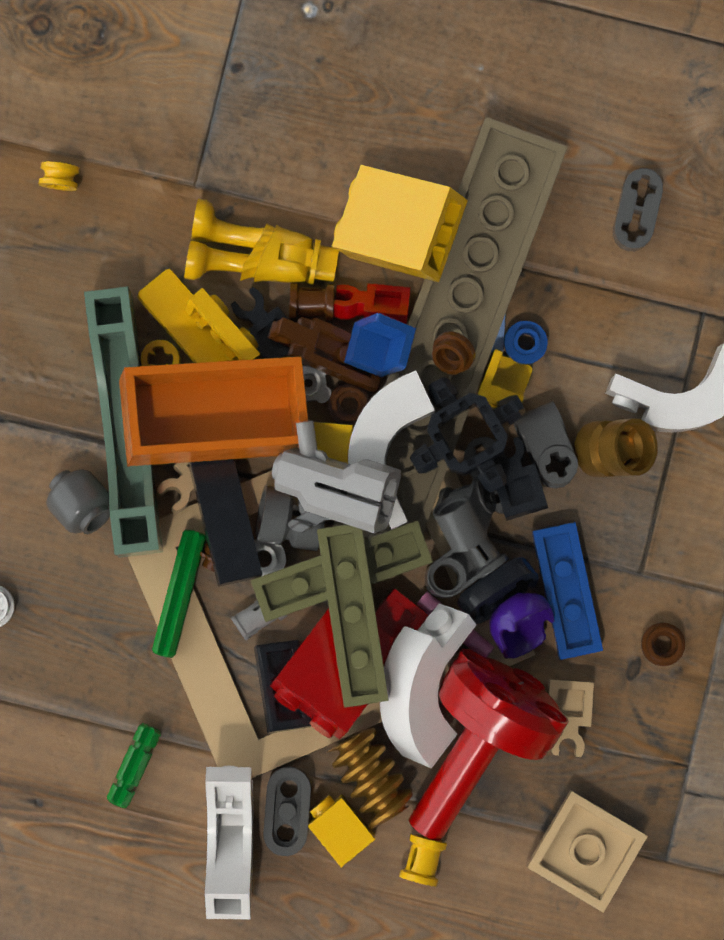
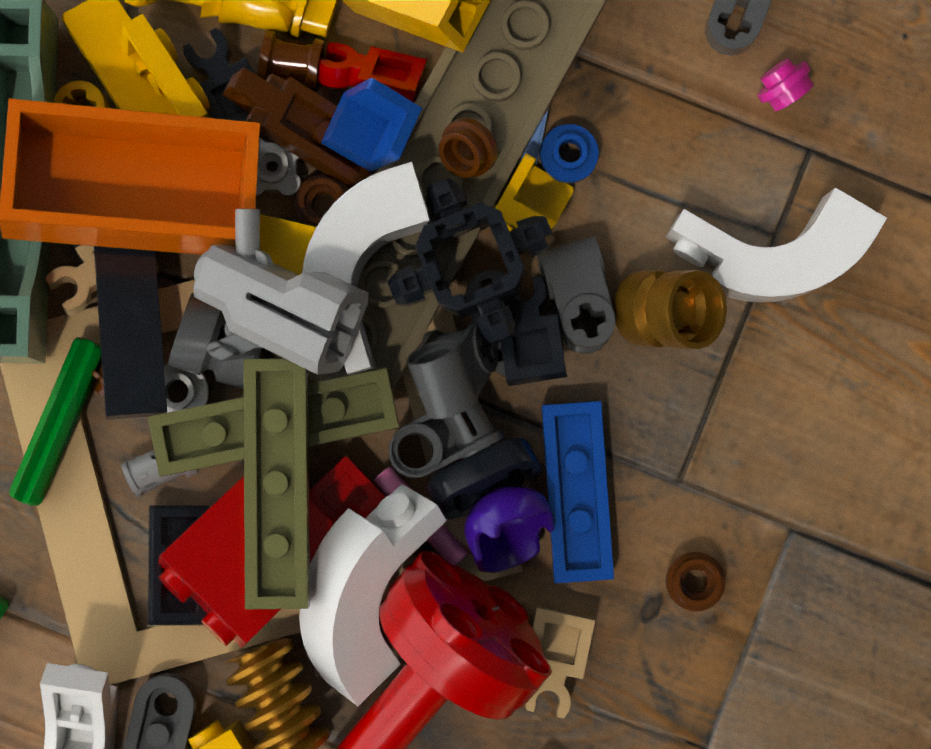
camera: 10 degrees right, 0 degrees up
(677, 269) = (785, 84): none -> dark pink plate

